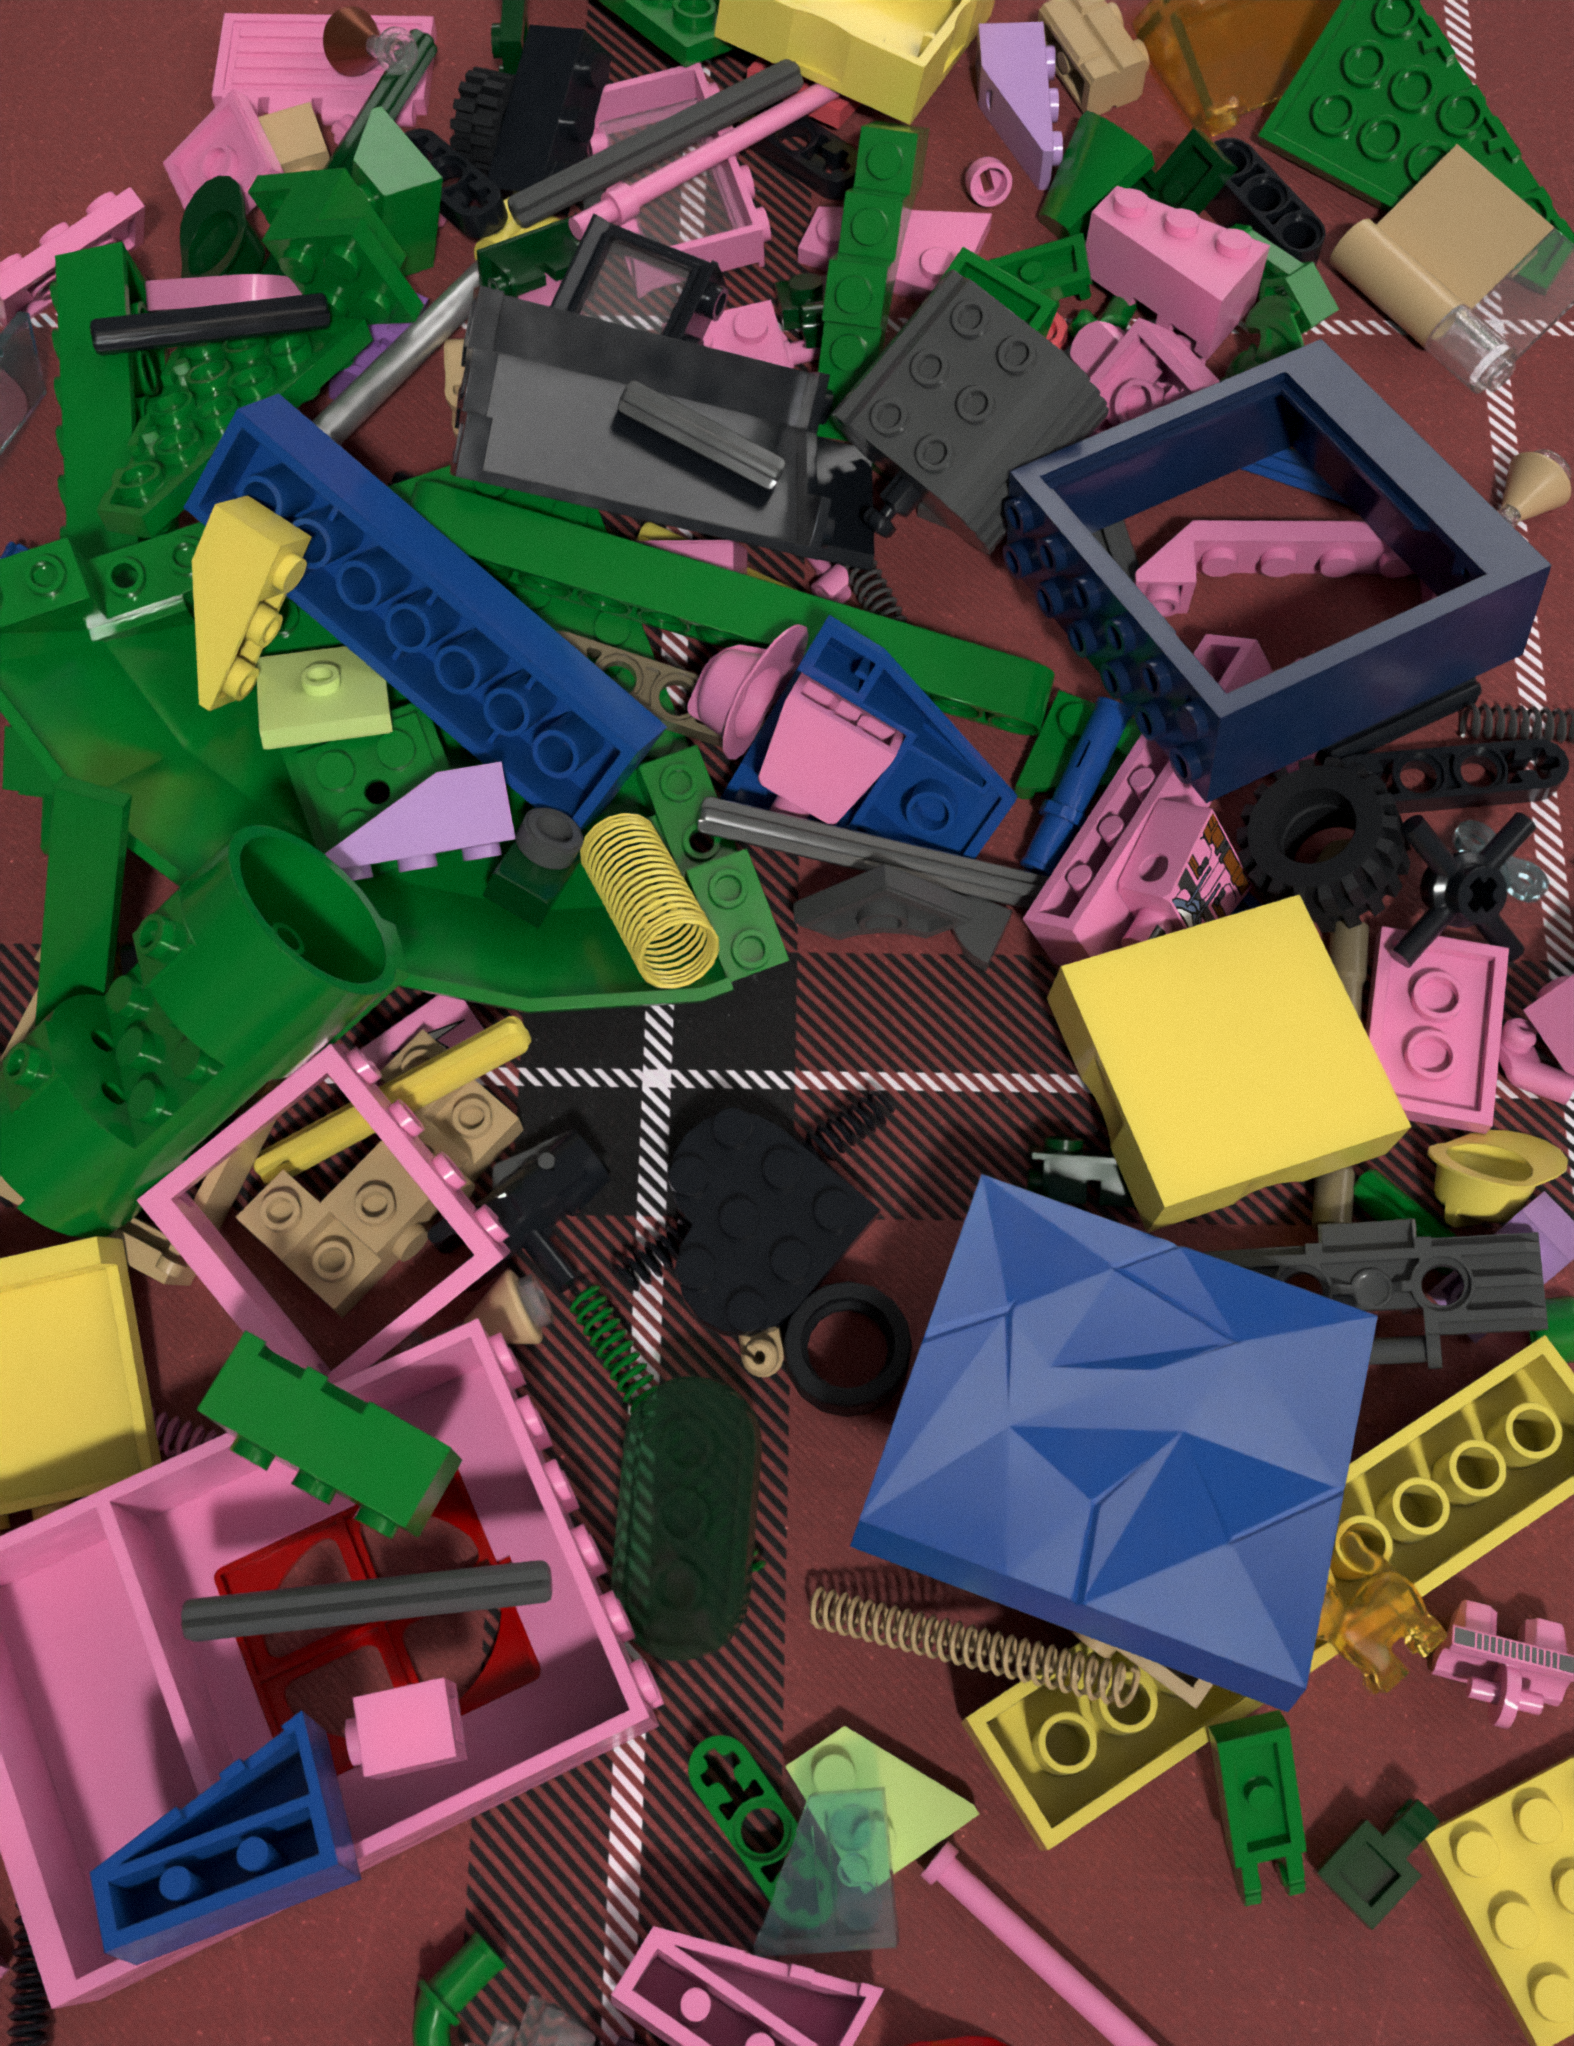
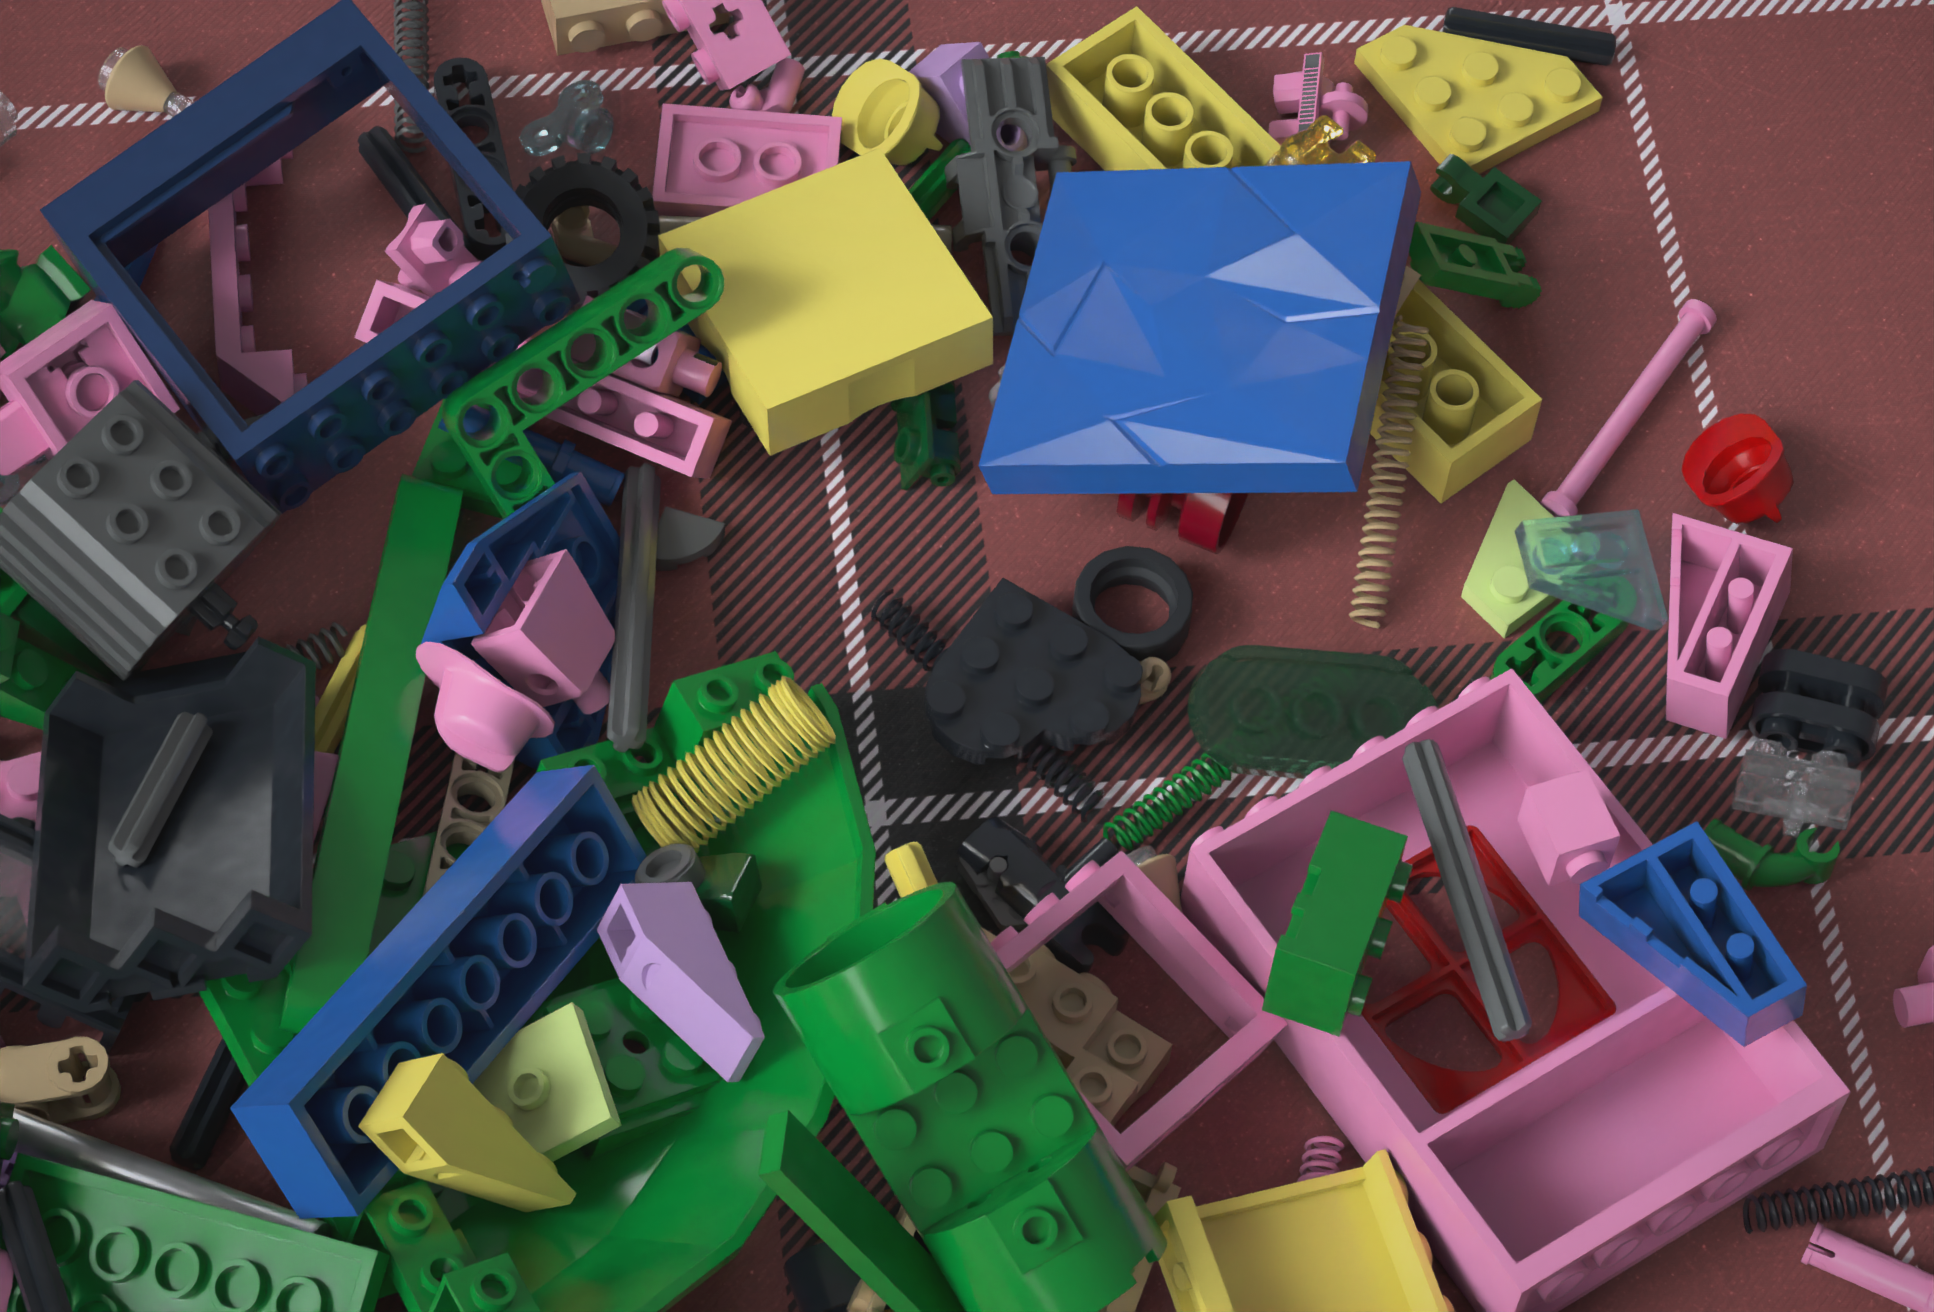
camera: 105 degrees left, 10 degrees down
(883, 903) = (688, 601): dark grey tile -> none
(1085, 727) = (563, 378): none -> green beam
(1462, 888) = (618, 127): black bar -> none

